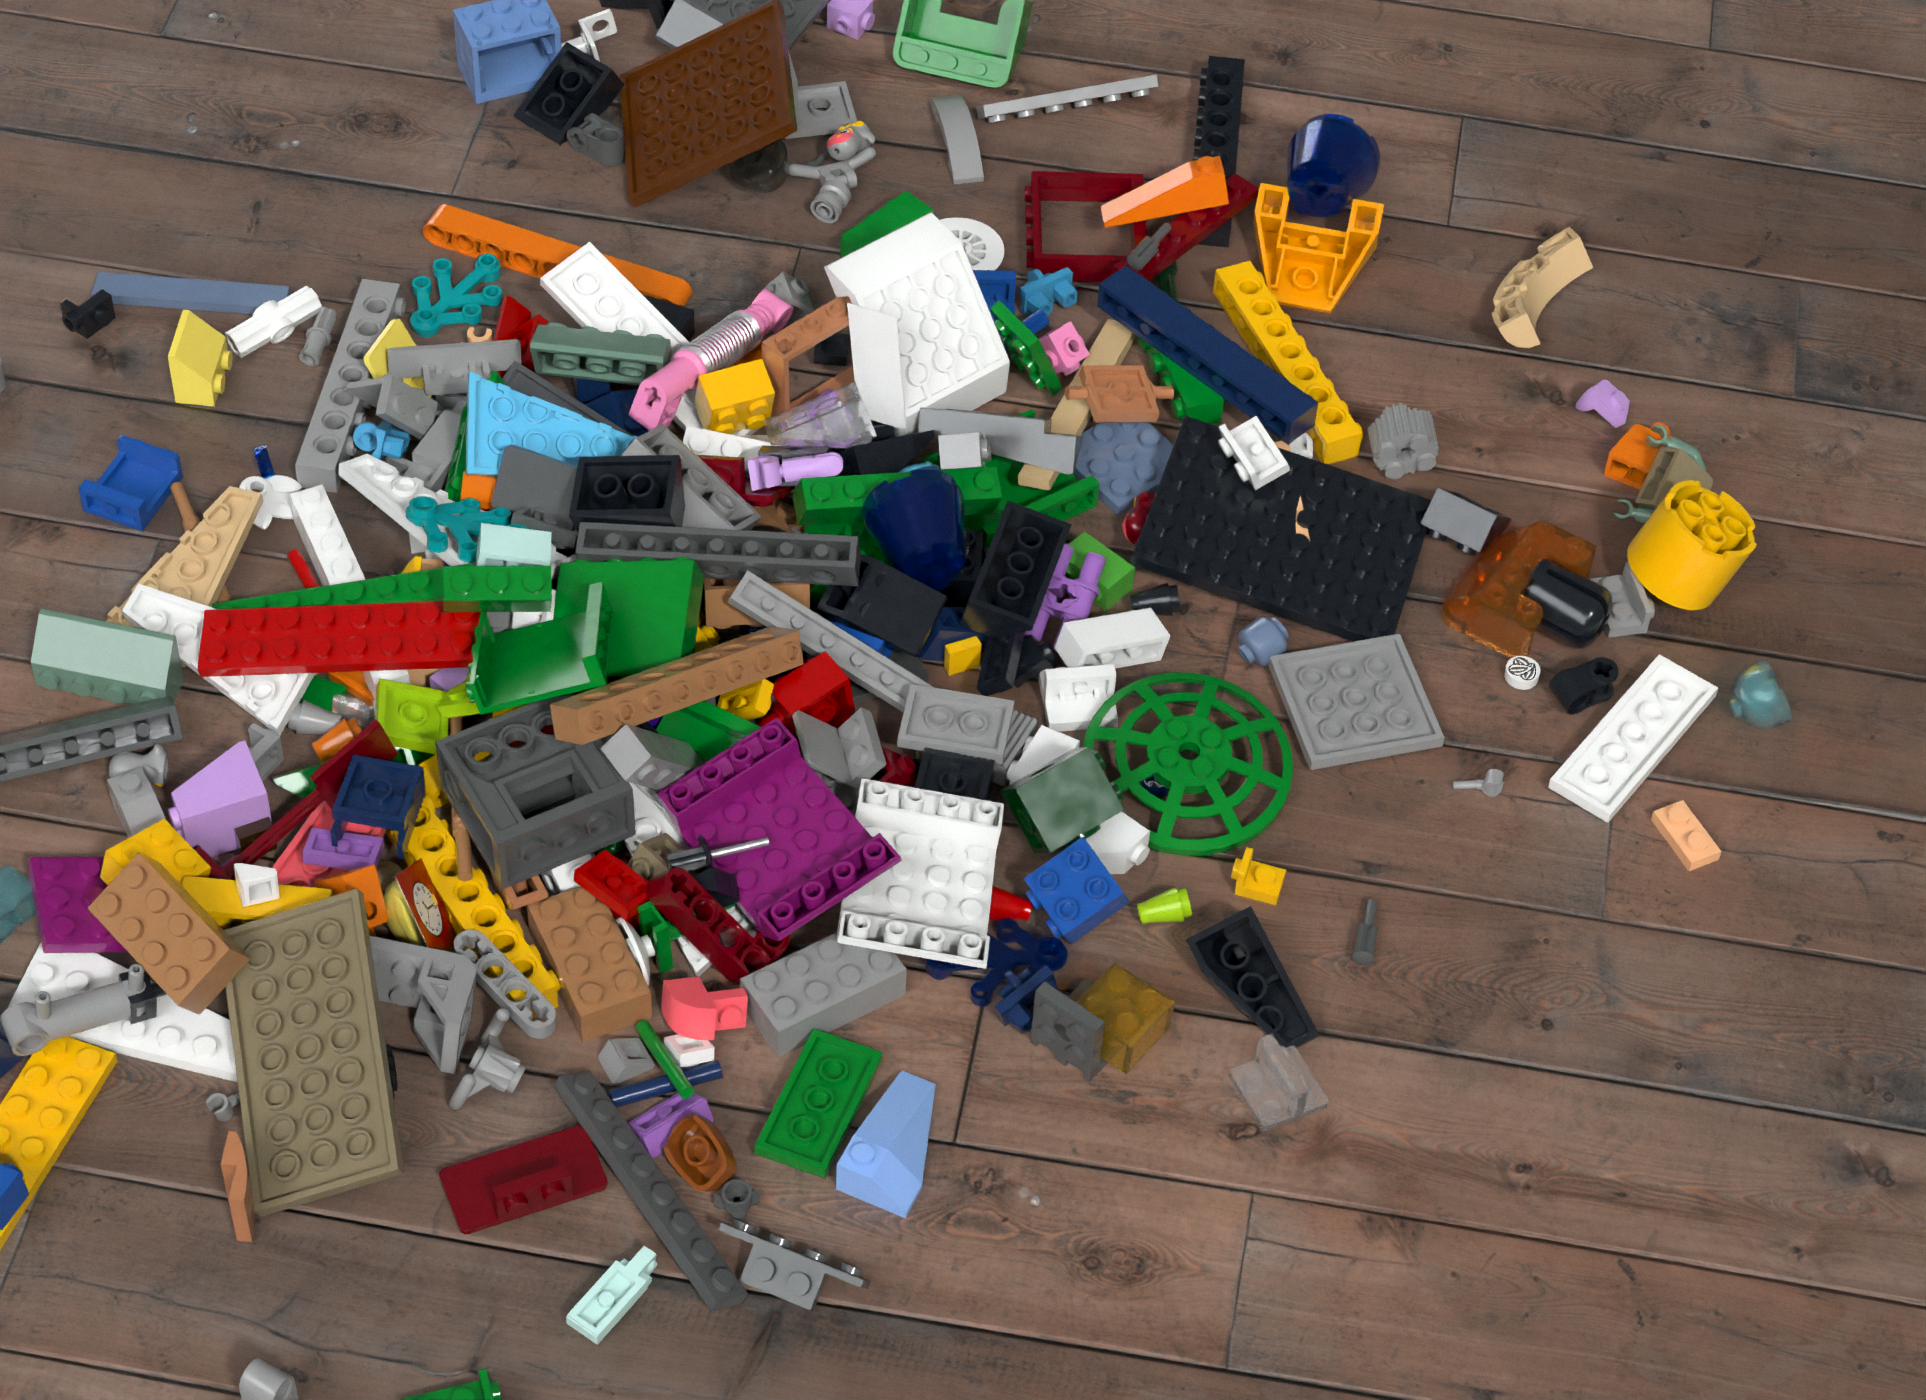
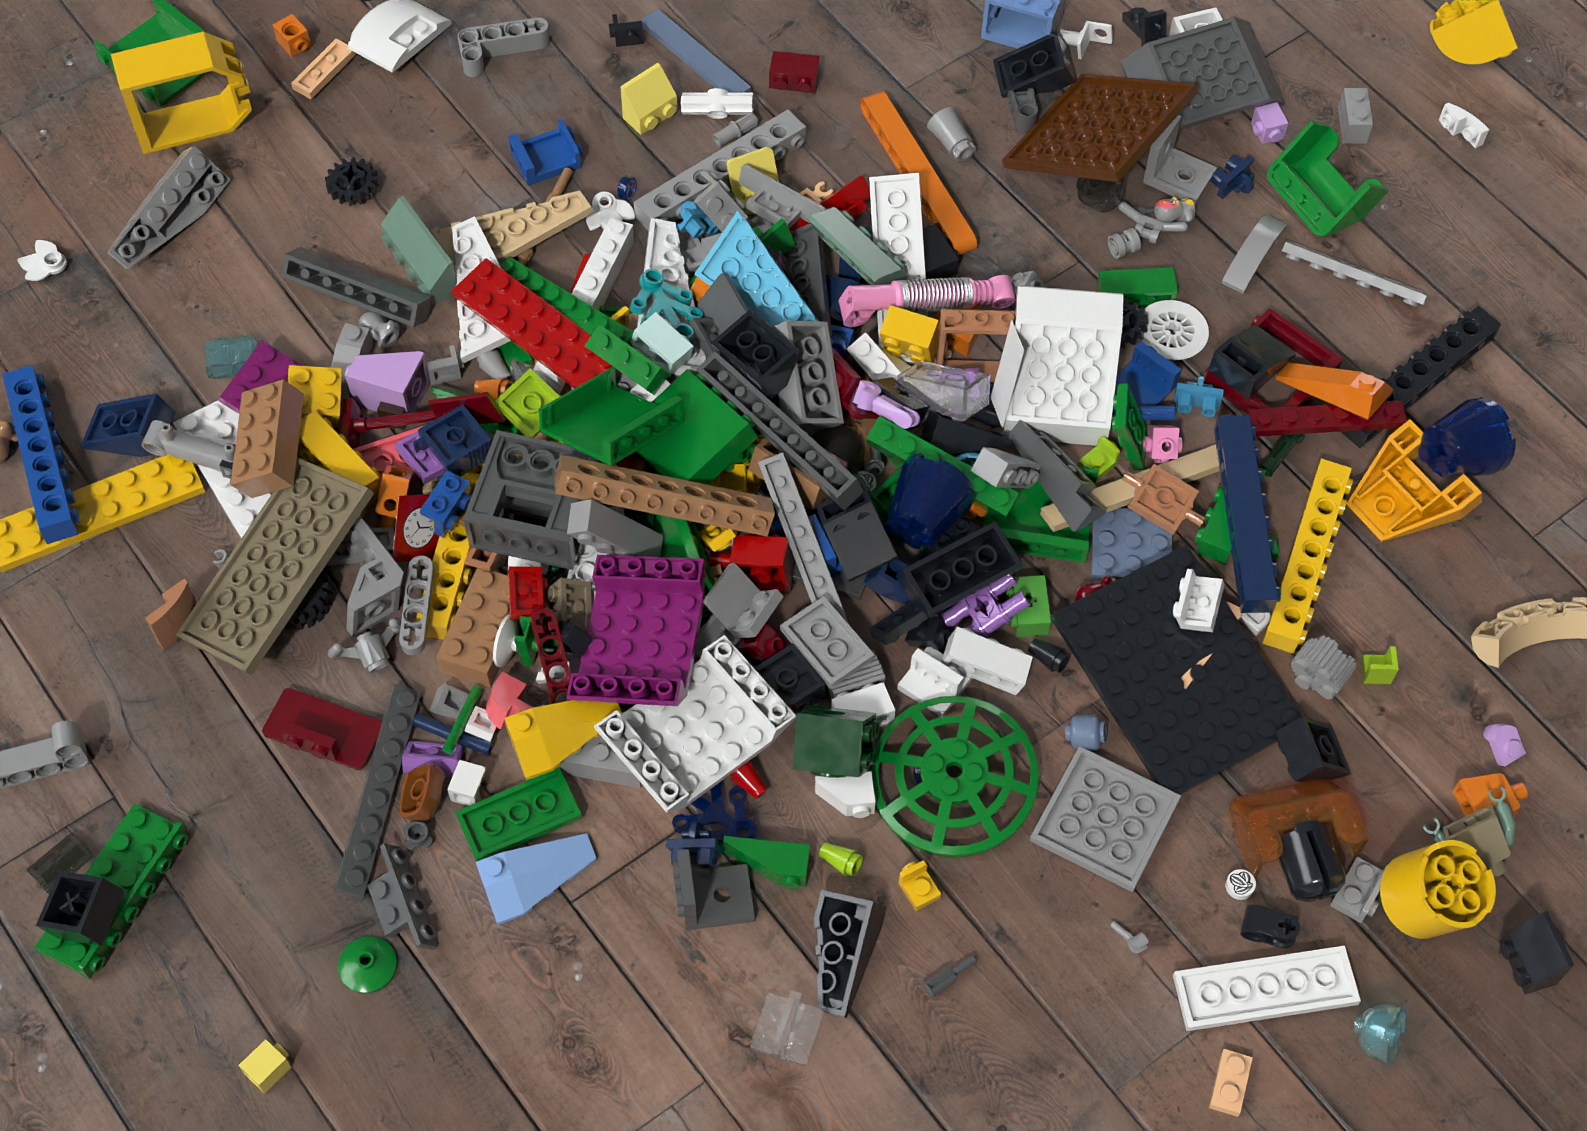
camera: 45 degrees right, 10 degrees up
(256, 883) = (335, 444): white slope -> none
(321, 244) = (794, 72): none -> dark red brick
(429, 319) = (811, 159): teal plant -> none
(435, 862) = (446, 502): none -> blue bracket
(555, 204) = (952, 134): none -> light grey plant
(612, 1296) = (295, 837): light aqua hinge -> none
(702, 857) = (584, 613): black piece -> none
(737, 1112) = (466, 783): none -> white panel
(790, 987) = (553, 732): none -> yellow wedge
(815, 1367) = (367, 977): none -> green dish
(865, 80) = (1237, 179): none -> dark blue hips
(962, 655) = (890, 599): yellow tile -> none
(1016, 395) = (1102, 457): none -> lime bracket
(1070, 225) = (1249, 360): none -> black slope
(1075, 891) = (790, 805): blue brick -> none
(1123, 942) = (777, 861): none -> green slope
(1132, 1014) = (729, 907): clear yellow brick -> none
(1147, 248) = (1279, 413): dark grey axle -> none
(1448, 410) = (1380, 668): none -> lime panel
(1810, 544) = (1536, 953): none -> black slope

